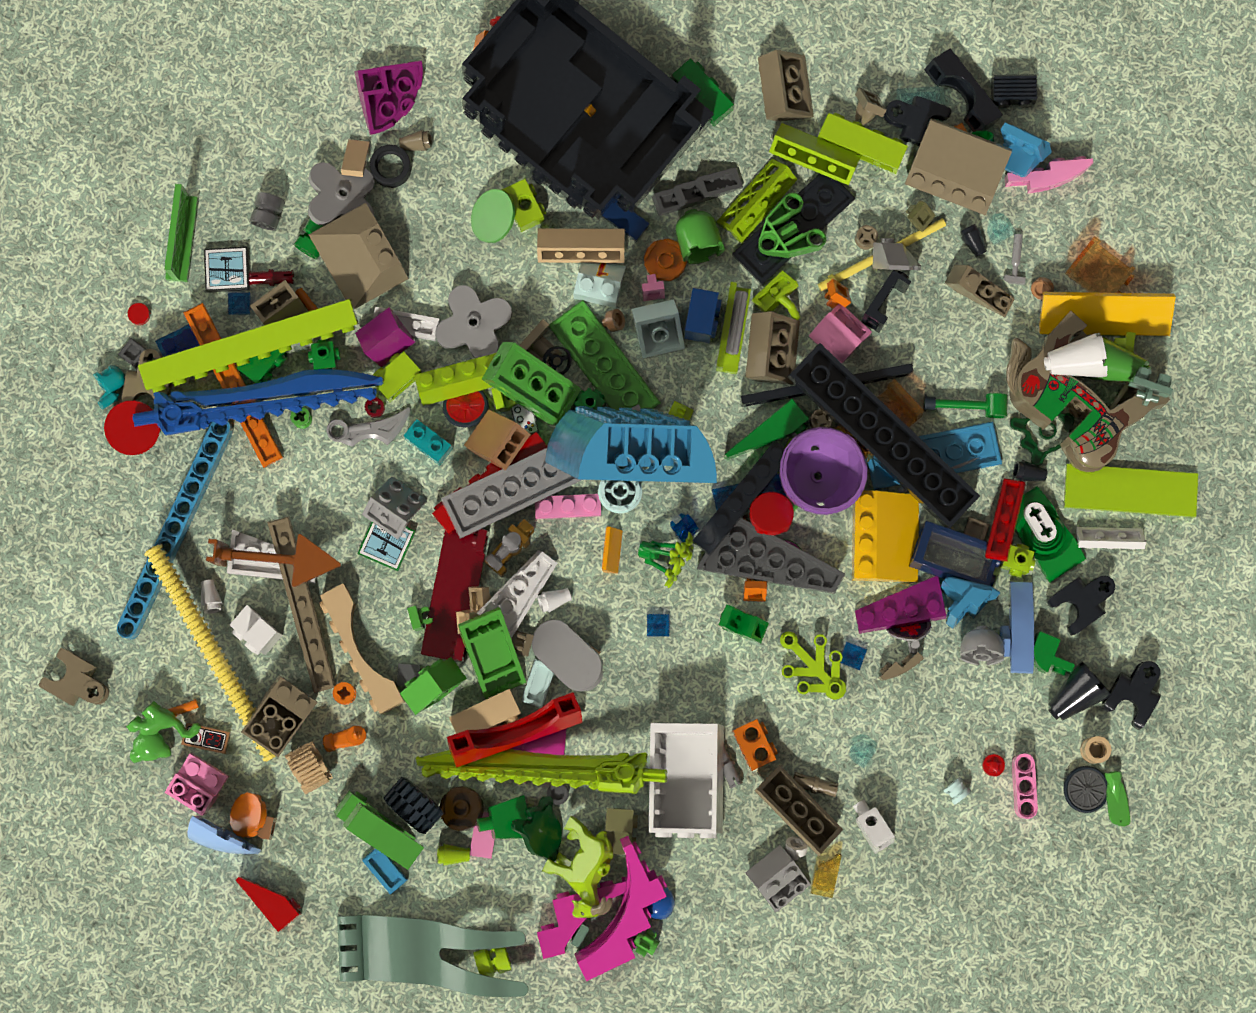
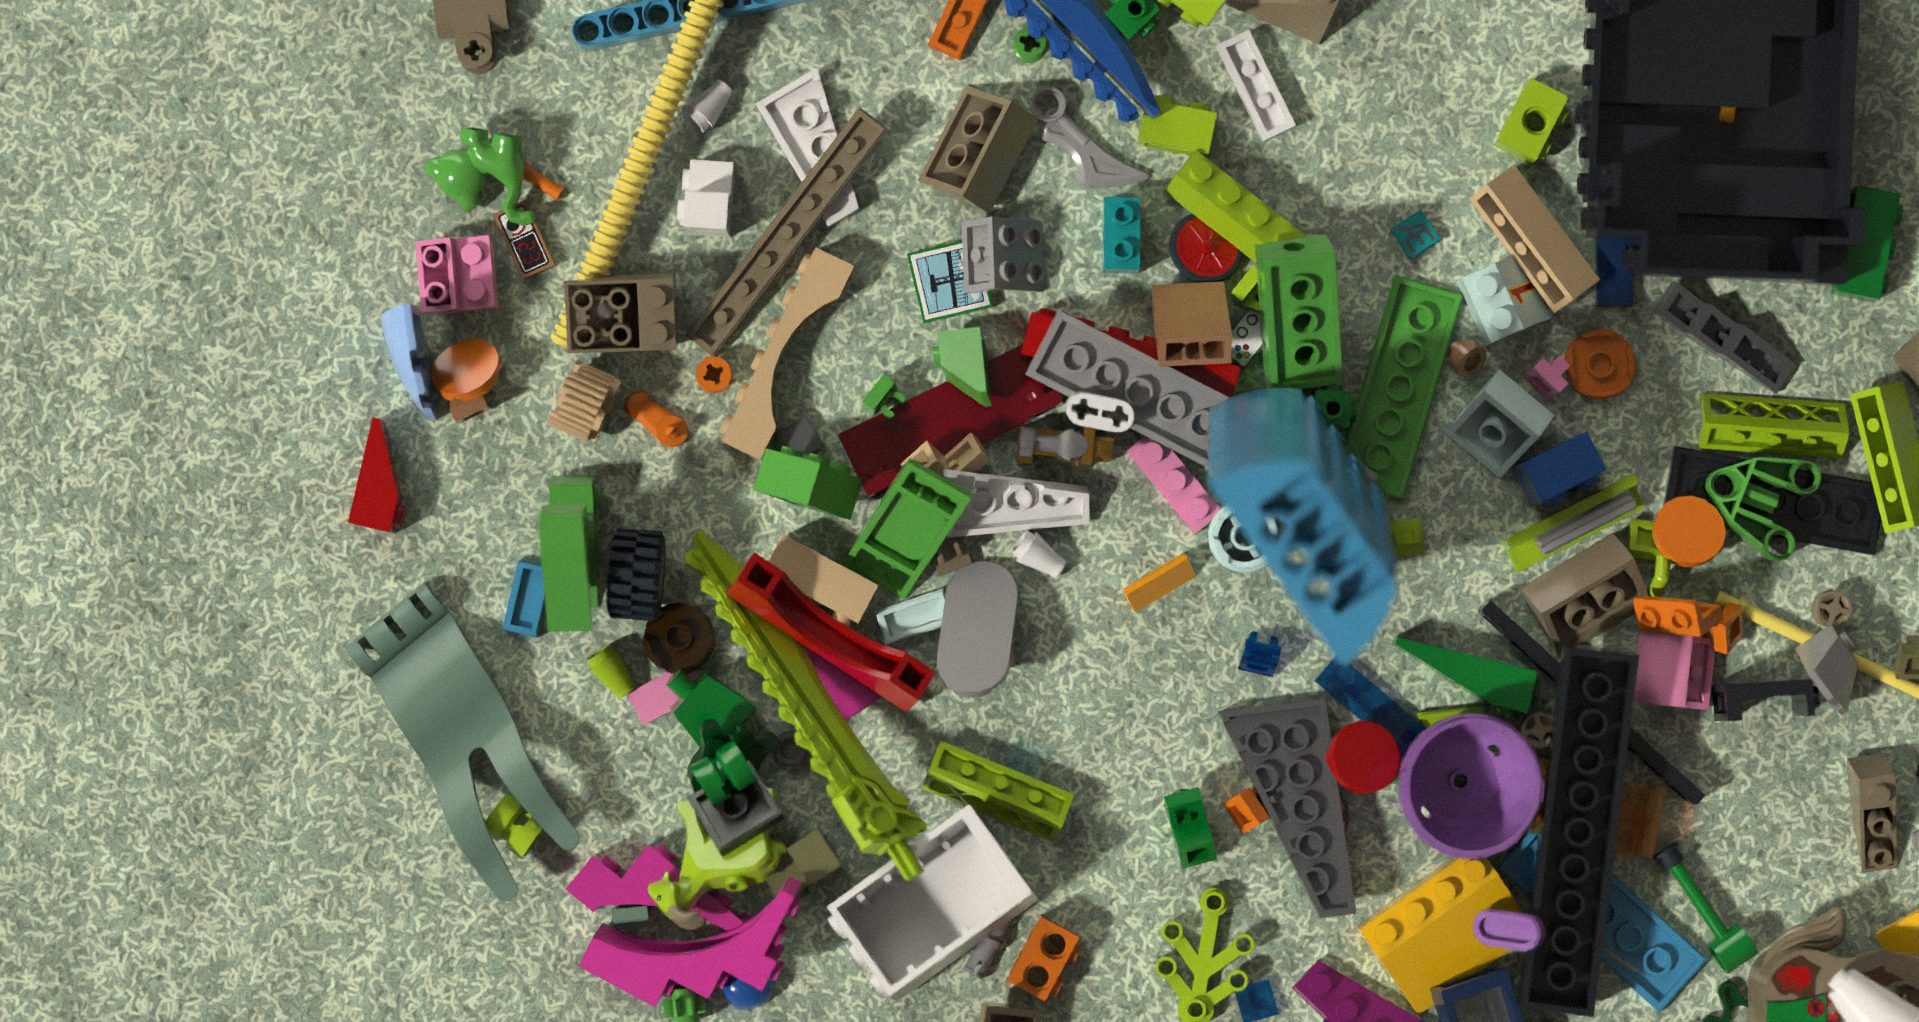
camera: 50 degrees right, 5 degrees up
(308, 560) = (848, 198): dark orange piece -> none
(332, 480) = (978, 149): none -> dark tan slope
(379, 412) = (1113, 141): dark red bush -> none
(384, 337) = (1216, 72): magenta slope -> none
(431, 564) = (964, 362): none -> bright green slope
(466, 307) = (1337, 148): light grey plant -> none
(493, 216) = (1486, 92): bright green piece -> none
(502, 512) = (1097, 420): none -> white beam
(535, 301) = (1415, 234): none -> teal tile
(543, 349) = (1357, 295): dark tan piece -> none
(544, 834) = (723, 773): none -> green wheel
(566, 842) = (739, 816): none -> pearl dark grey tile
(652, 550) = (1197, 636): plant -> none
(652, 687) = (1022, 761): none -> clear light blue tile
(654, 705) = (998, 790): none -> lime fence
(657, 625) = (1106, 715): tile -> none
(698, 236) = (1663, 385): bright green cylinder -> none
(740, 500) = (1352, 702): black plate -> none
(778, 276) = (1688, 531): none -> orange tile
(813, 312) = (1675, 615): none -> orange bracket
(907, 505) = (1509, 929): none -> medium lavender tile

